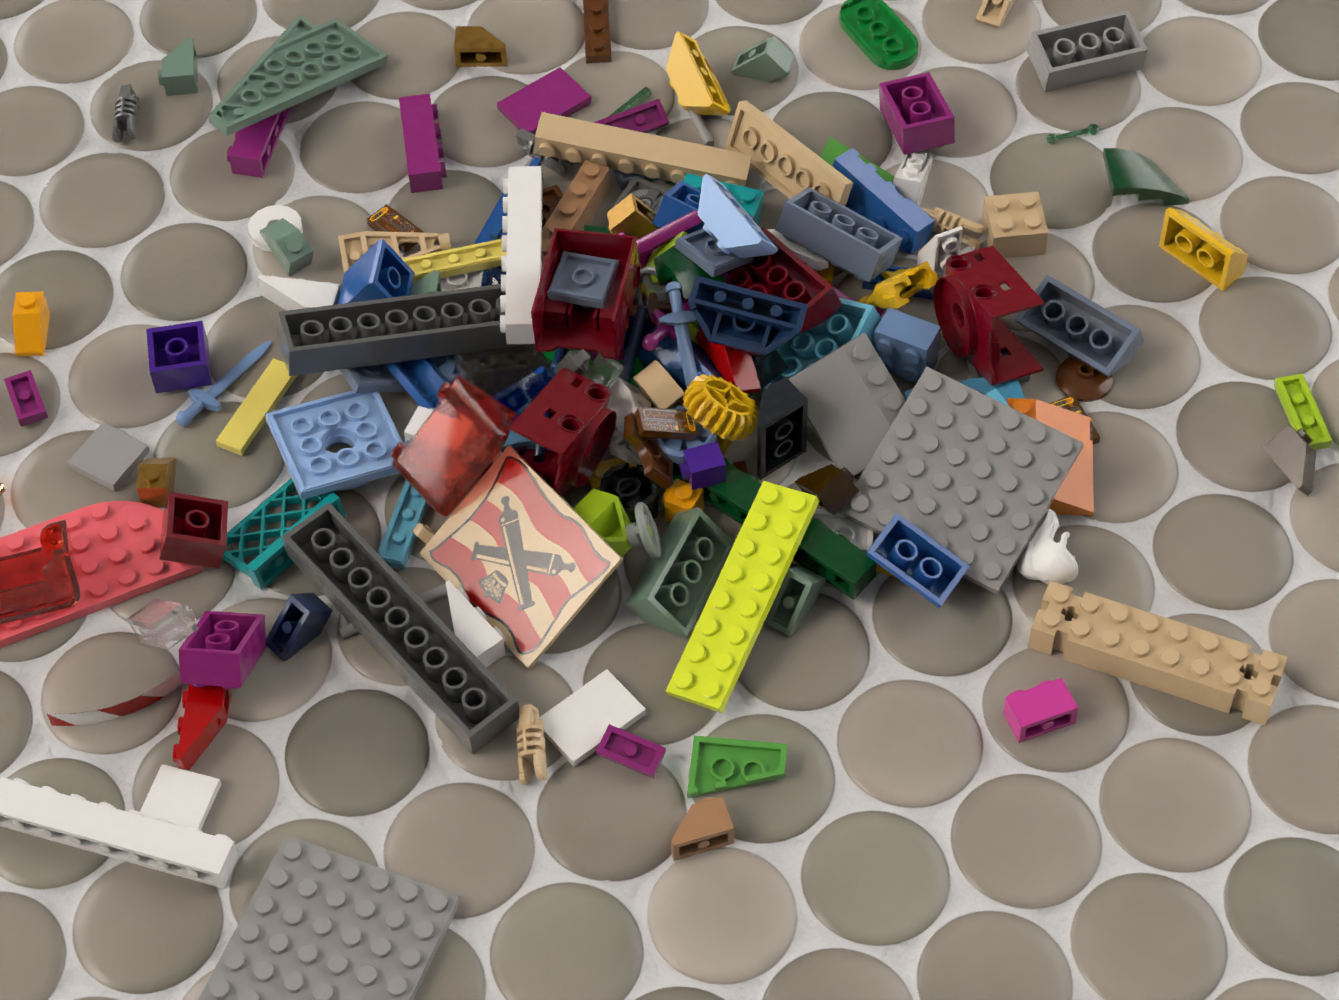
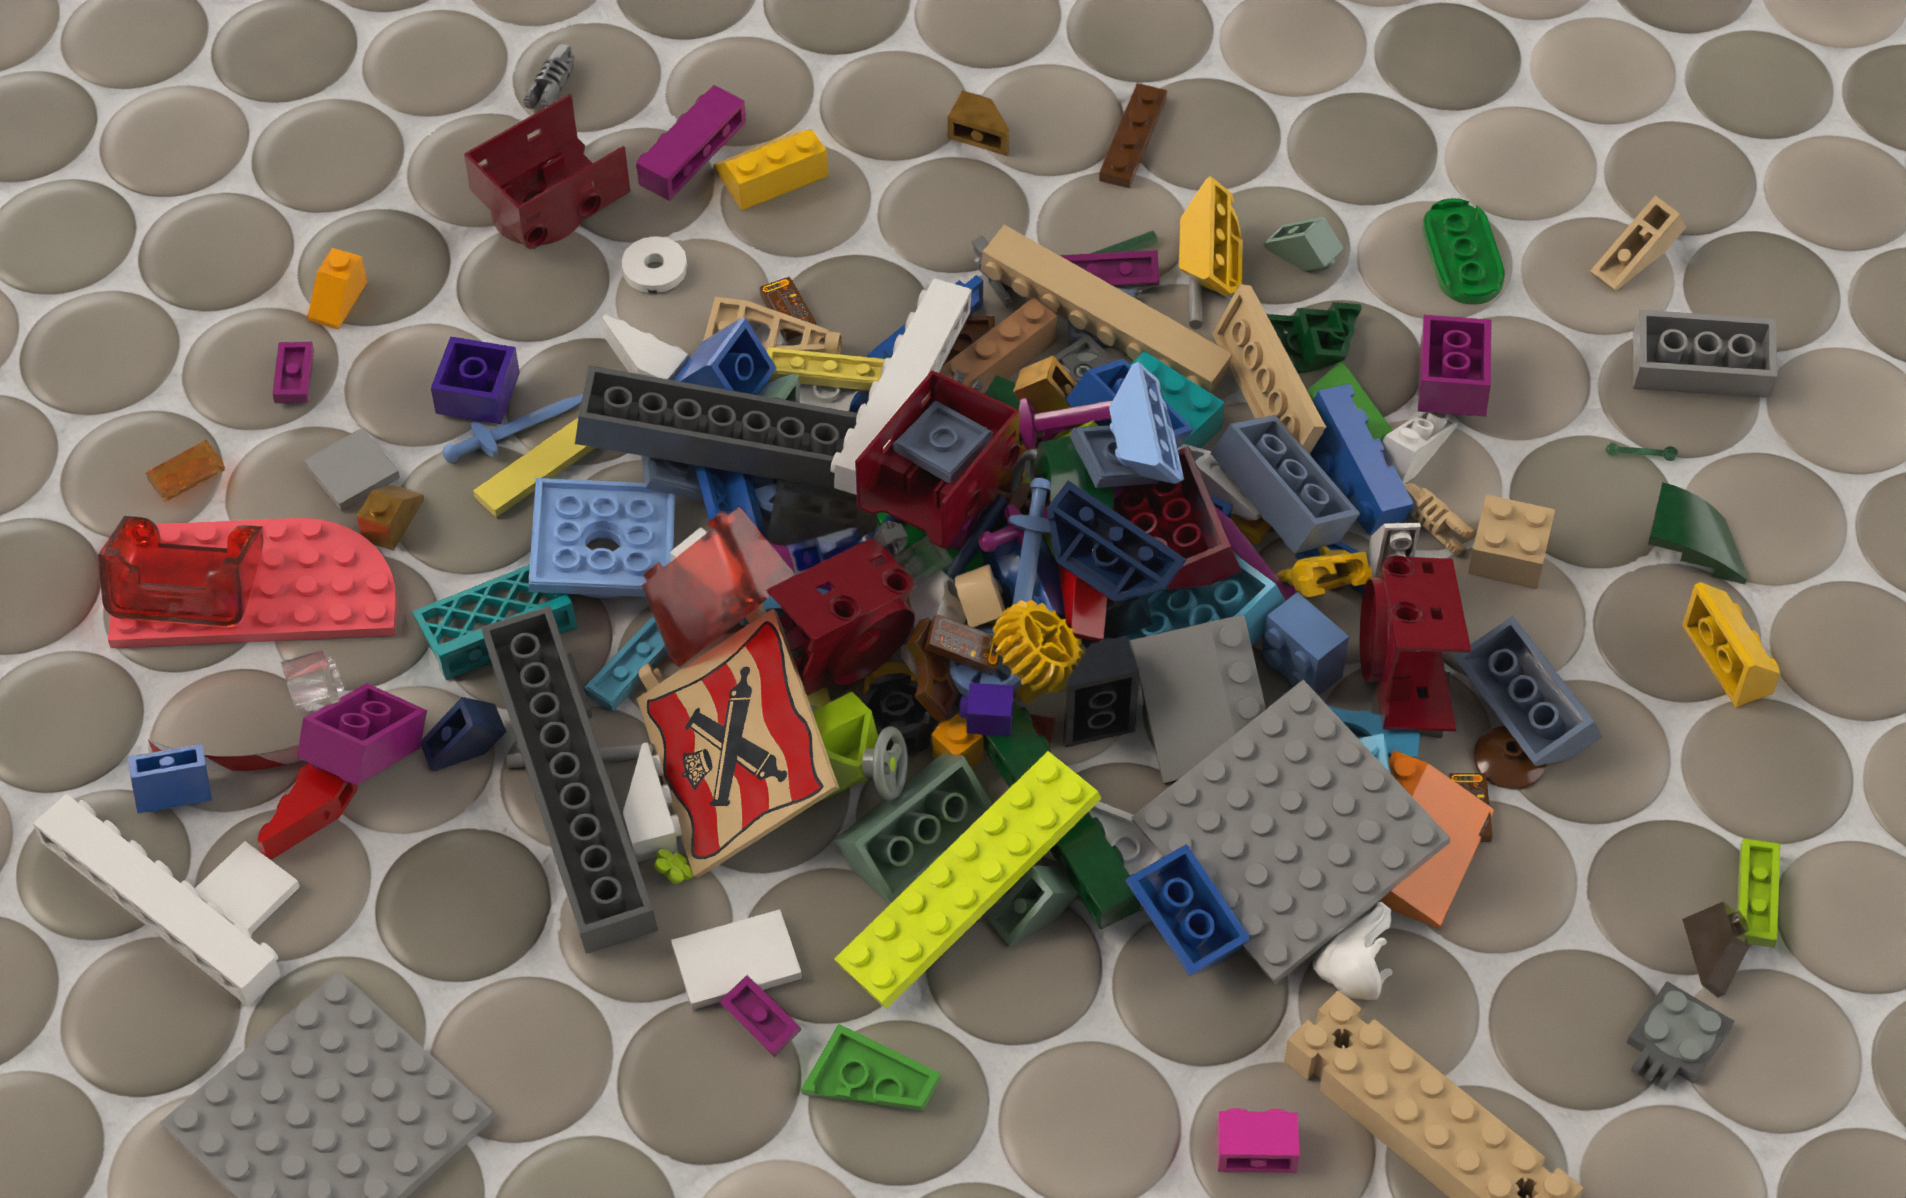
camera: 20 degrees right, 0 degrees up
(80, 737) = (169, 778): none -> blue brick
(158, 179) = (547, 165): none -> dark red piece
(180, 70) = (634, 45): sand green slope -> none
(194, 530) = (394, 586): dark red brick -> none
(288, 245) = (654, 290): sand green slope -> none
(294, 69) = (759, 84): sand green wing -> none
(334, 127) = (773, 168): none -> yellow slope
(420, 143) = (861, 217): magenta brick -> none
(509, 665) = (673, 866): none -> lime plant
(530, 744) = (651, 967): tan hinge -> none
(551, 94) = (1032, 209): magenta tile -> none
(703, 829) = (797, 1137): medium nougat slope -> none
(807, 121) = (1317, 336): none -> dark green slope
(831, 486) = (1129, 785): dark brown slope -> none
(1294, 531) = (1677, 1036): none -> piece

